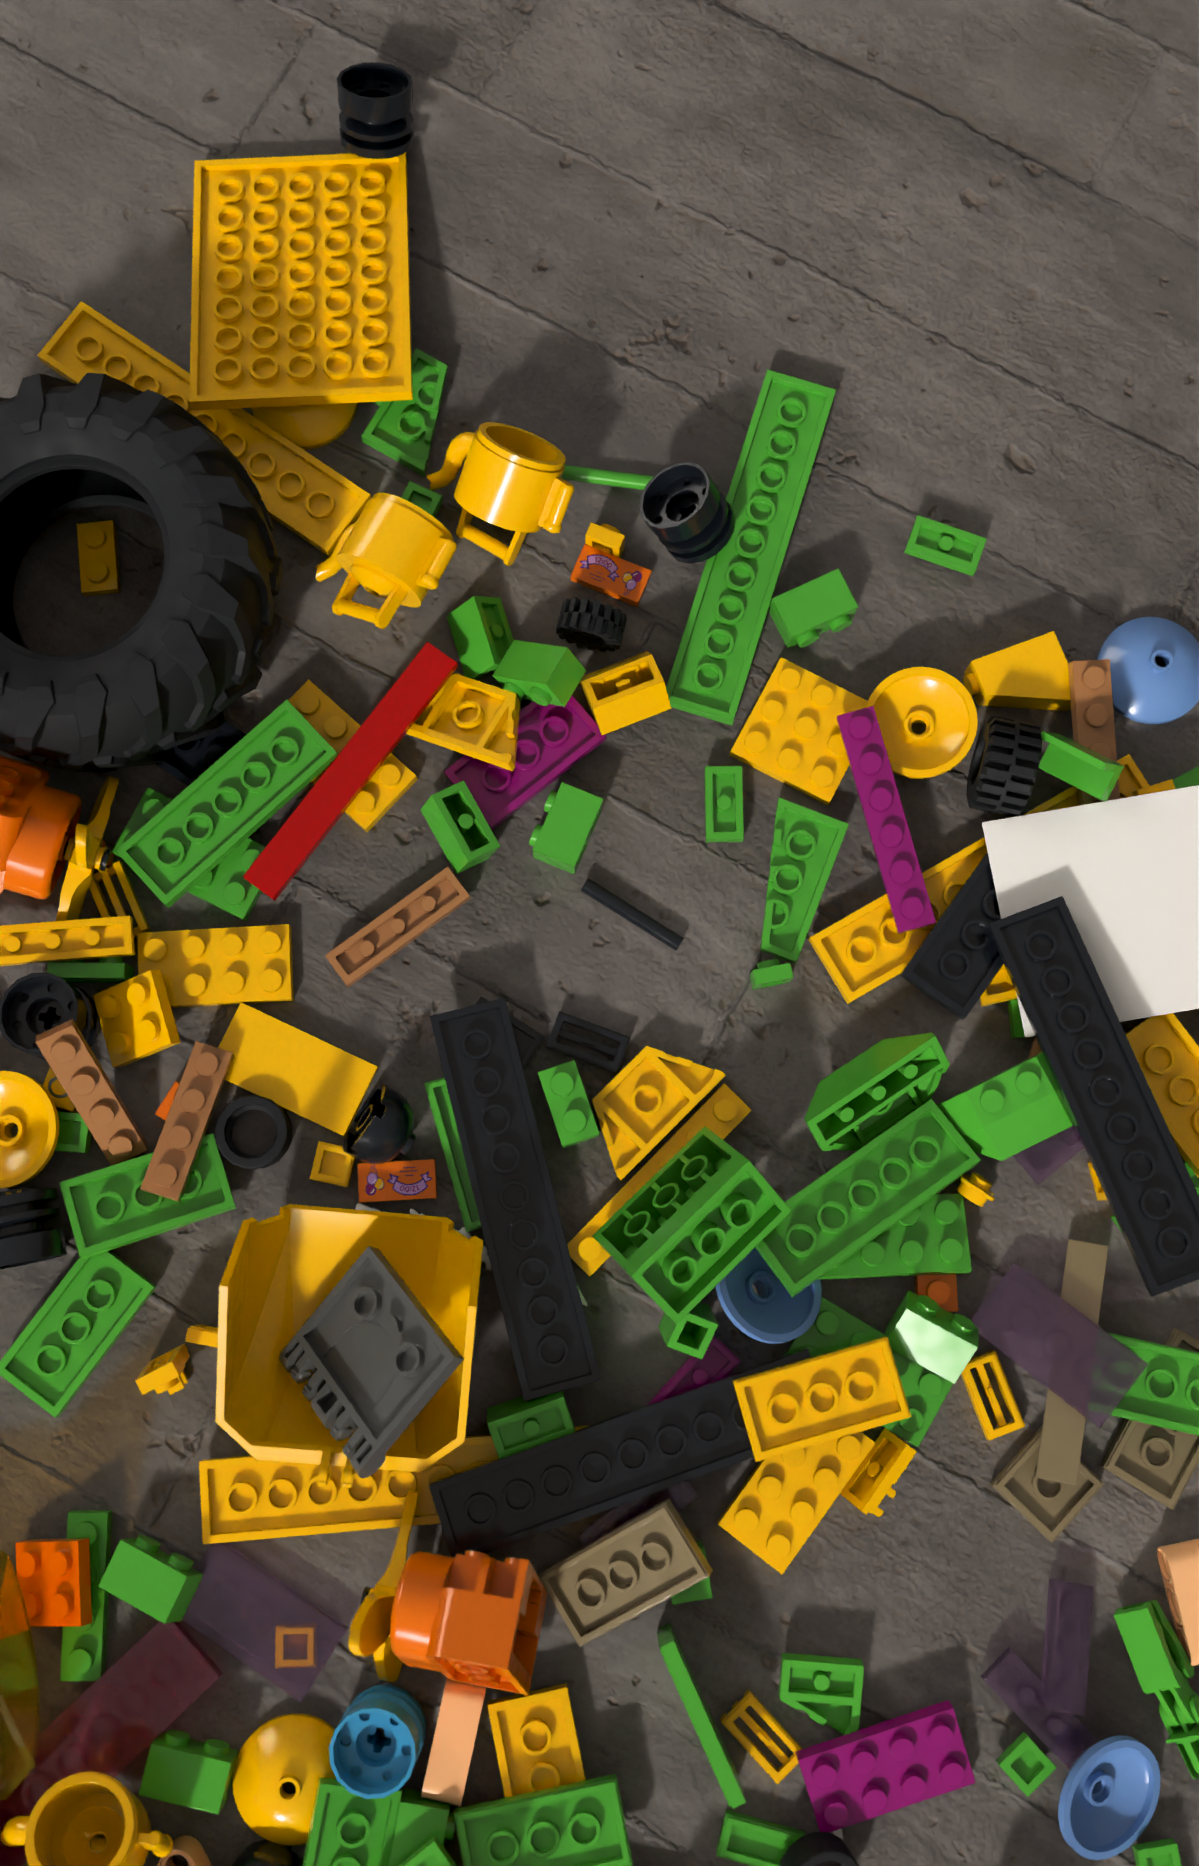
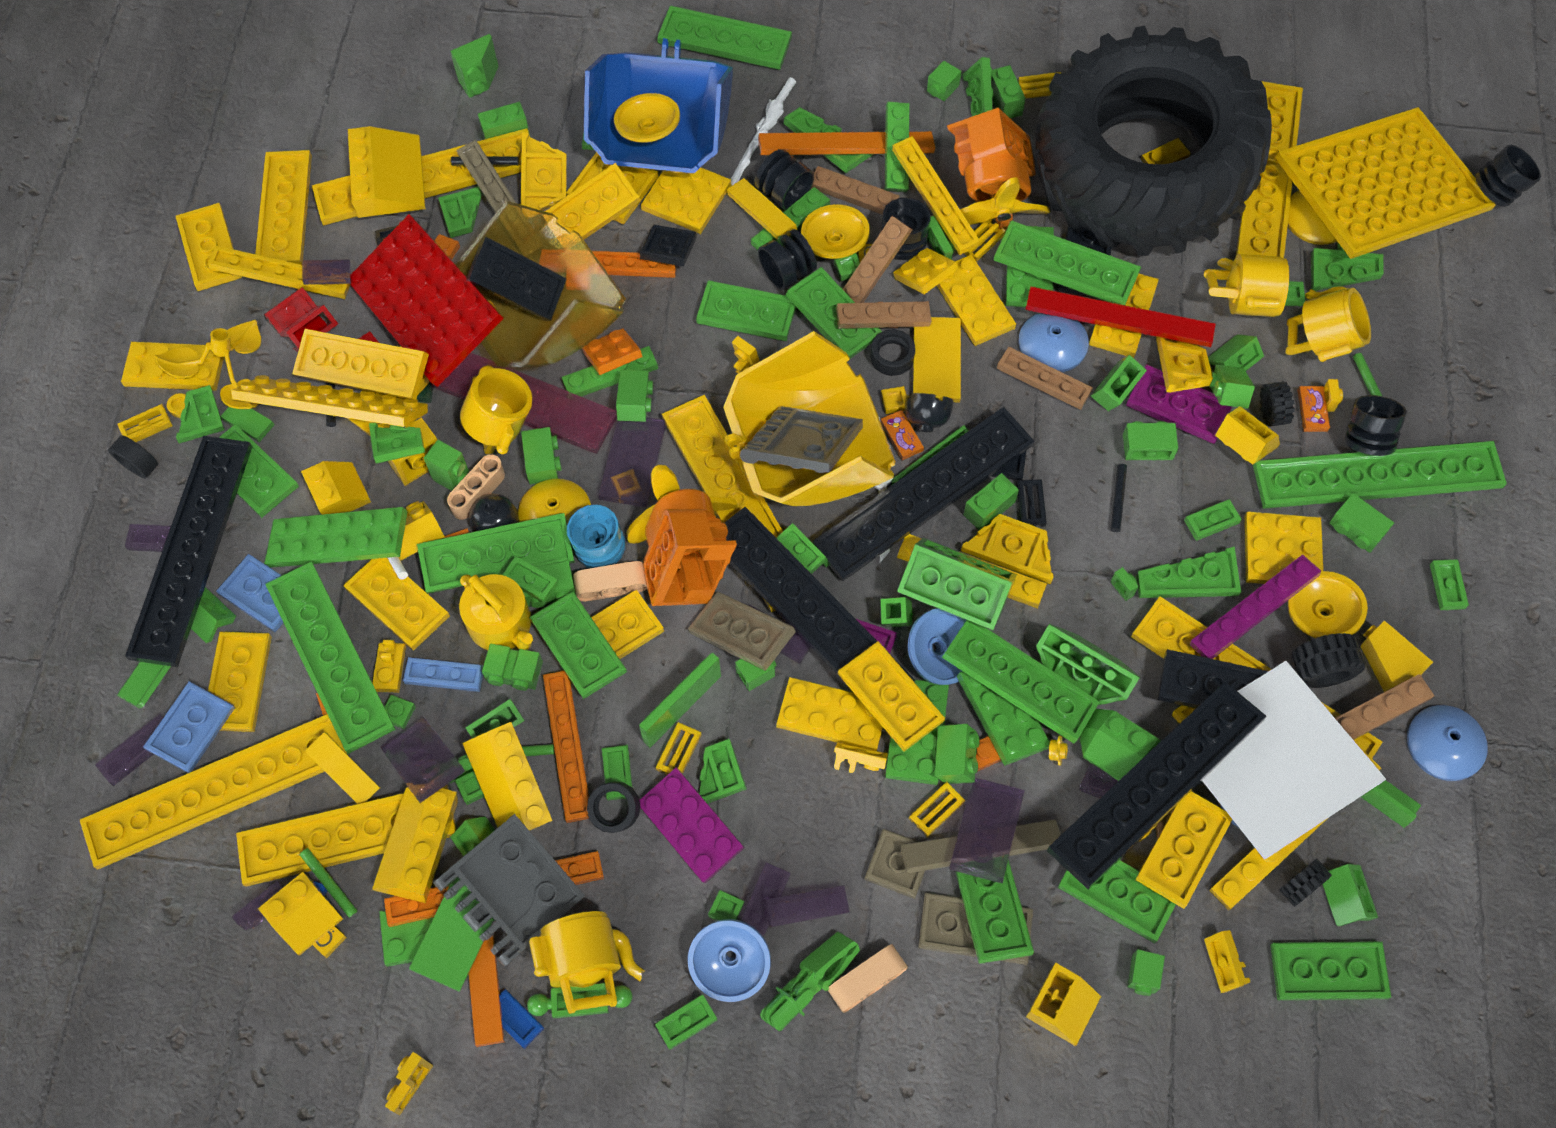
camera: 70 degrees right, 15 degrees down
(355, 900) = (1059, 350): none -> medium blue dish
(1079, 766) = (1356, 702): bright green panel -> none

